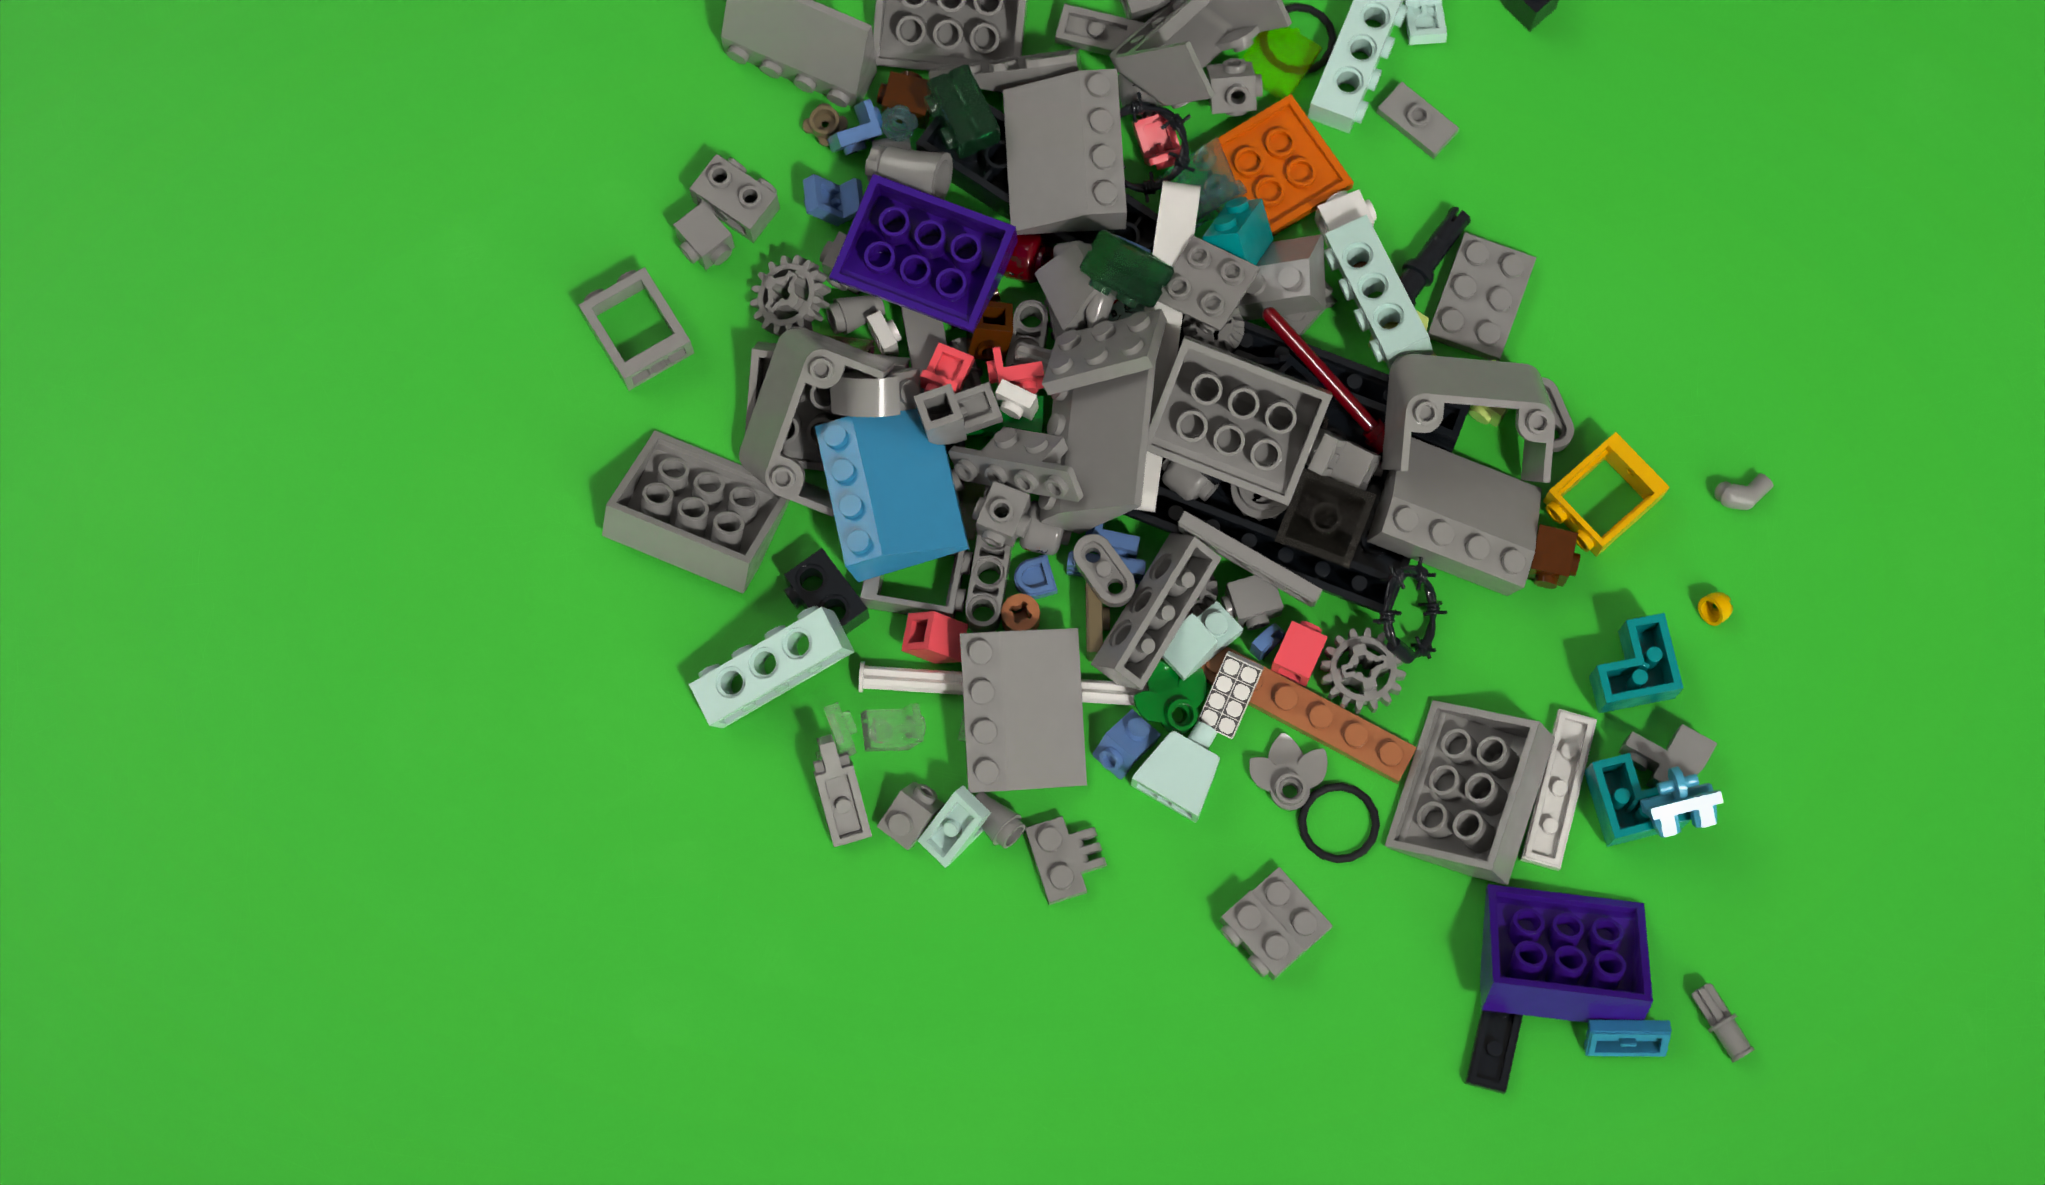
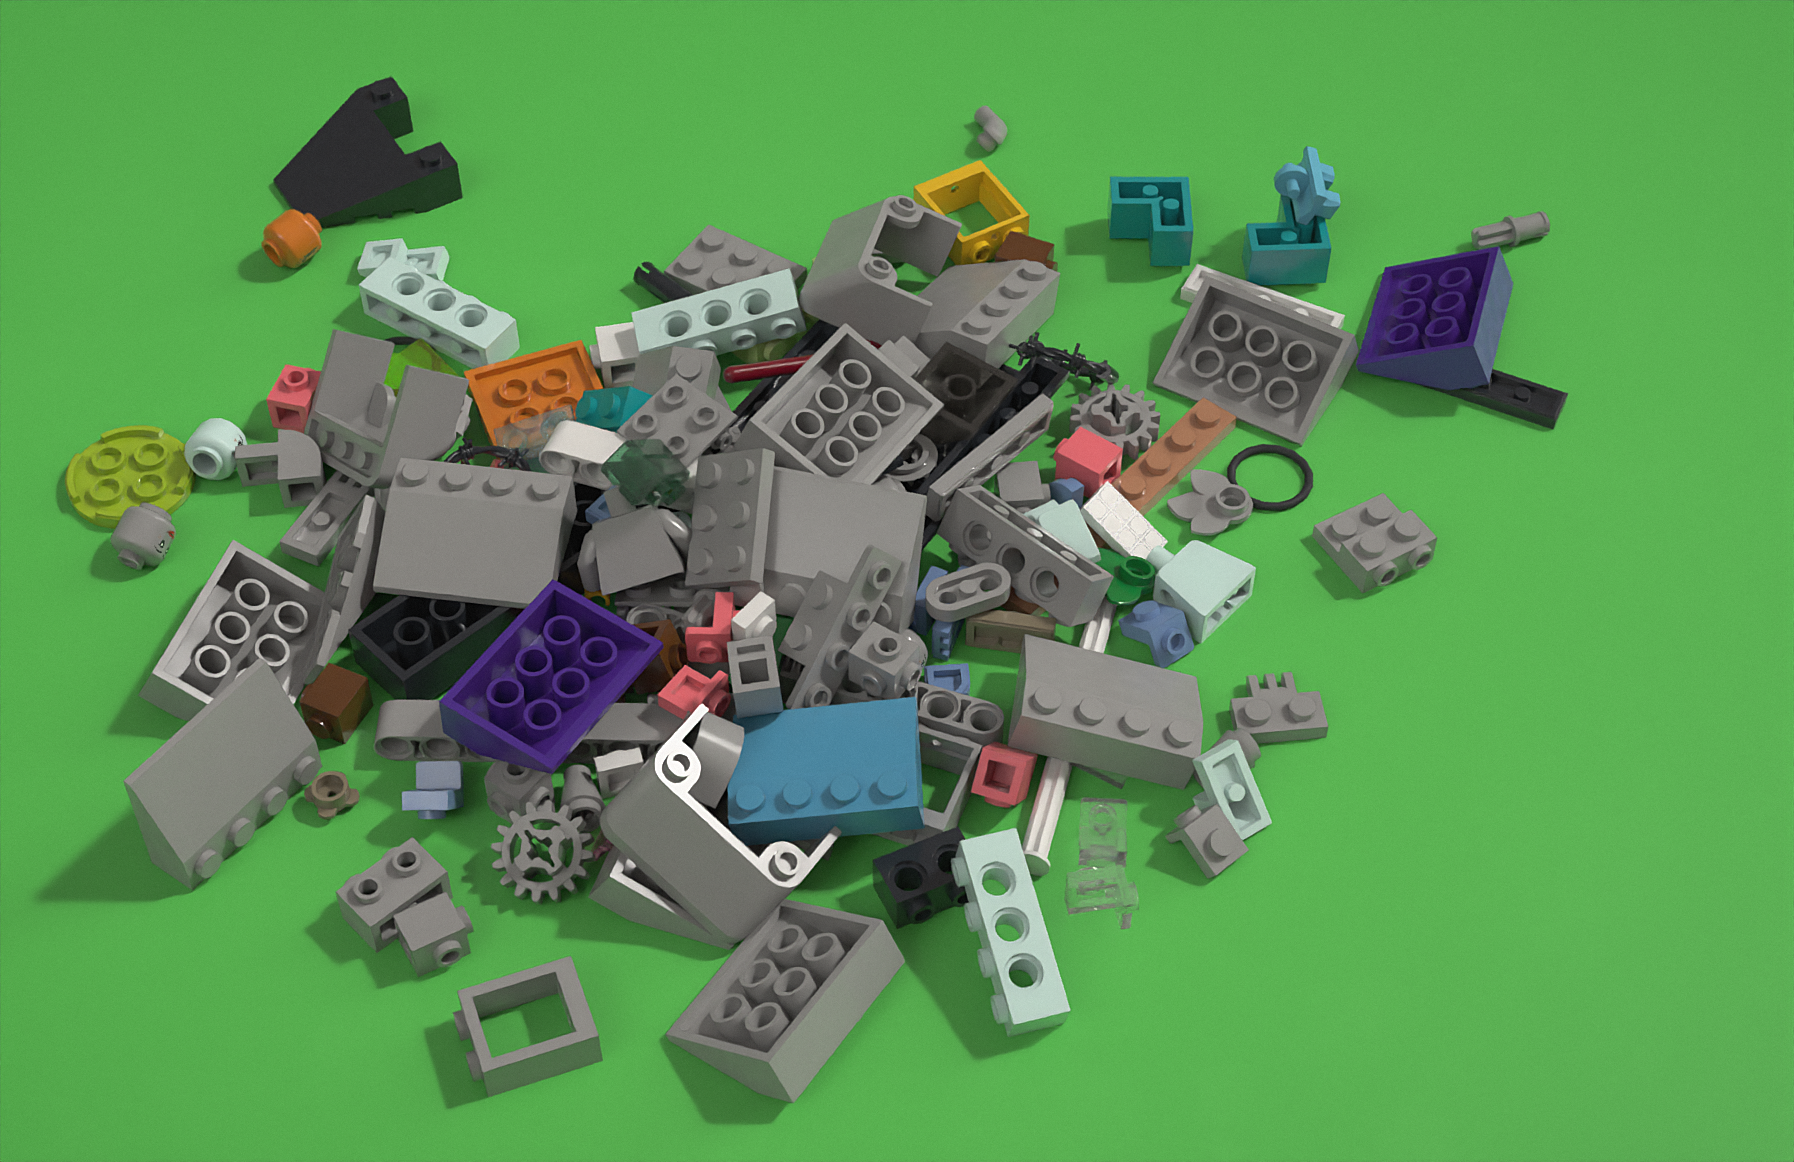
camera: 80 degrees left, 25 degrees down
(840, 794) = (1175, 891): light grey hinge -> none
(854, 139) = (354, 745): medium blue bracket -> none
(895, 130) = (376, 699): clear light blue plate -> none
(916, 169) = (441, 669): light grey plant -> none
(962, 111) = (388, 618): clear green brick -> none
(1019, 620) = (998, 687): nougat wheel -> none
(1417, 120) = (528, 288): light grey plate -> none
(1627, 1038) = (1522, 293): dark azure tile -> none
(1686, 750) = (1240, 204): light grey brick -> none
(1712, 615) = (1106, 163): yellow hinge -> none

